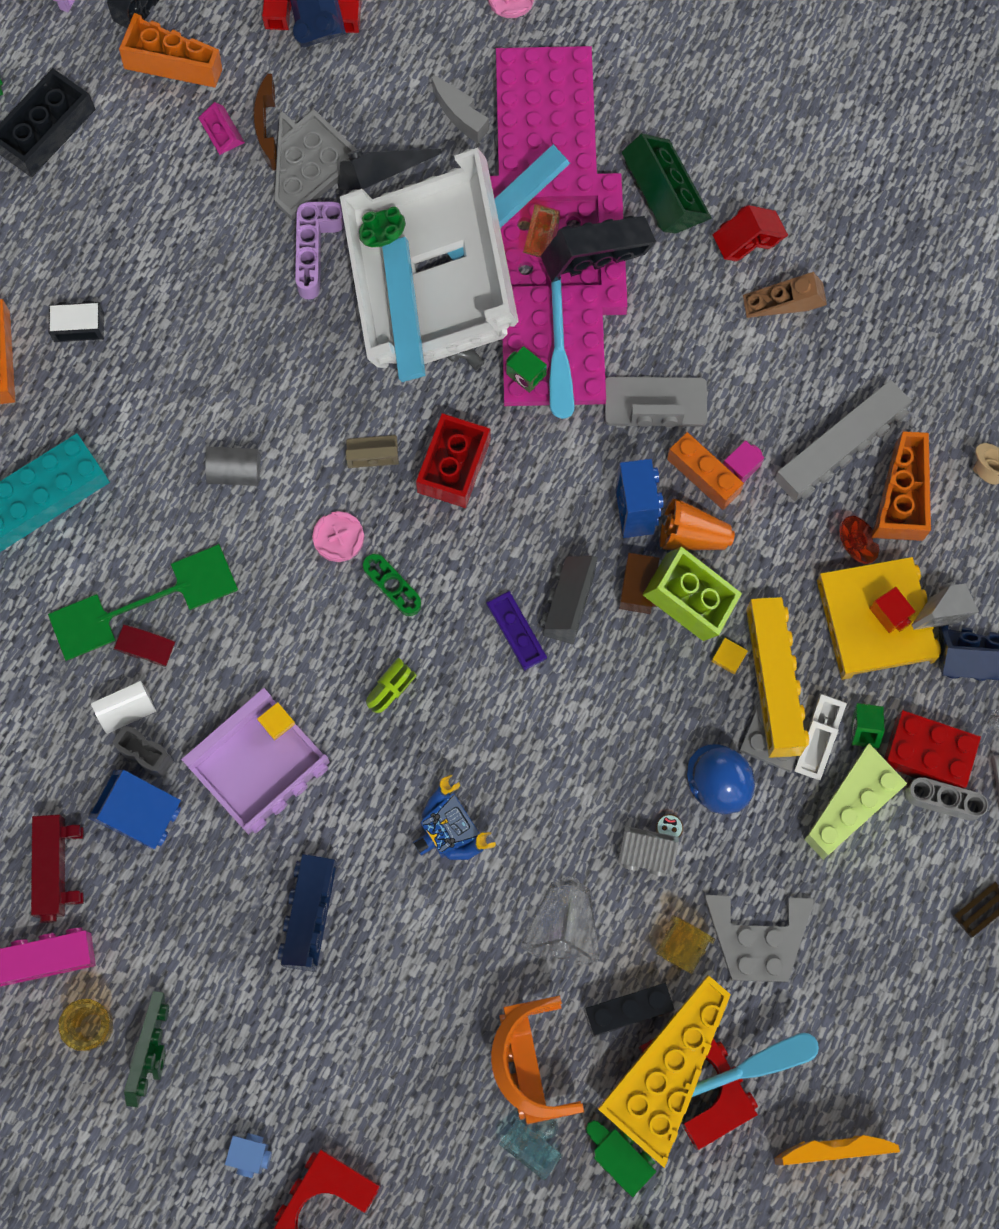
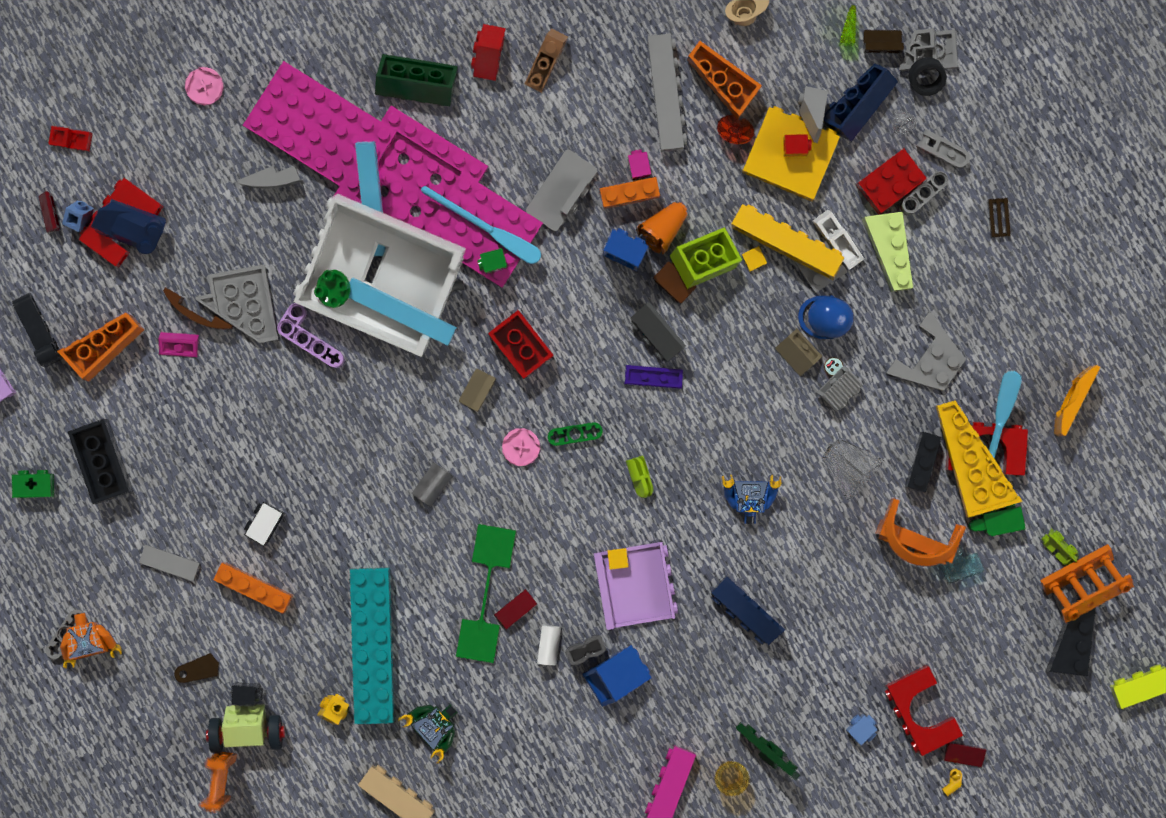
camera: 60 degrees left, 15 degrees up
(48, 867) = (619, 746): dark red brick -> none
(369, 168) = (284, 264): black wedge -> none
(542, 229) = (405, 189): slope -> none
(596, 245) = (440, 160): black wedge -> none
(658, 775) = (798, 352): none -> dark tan panel
(684, 944) = (907, 405): clear yellow piece -> none
(867, 725) = (851, 208): green brick -> none

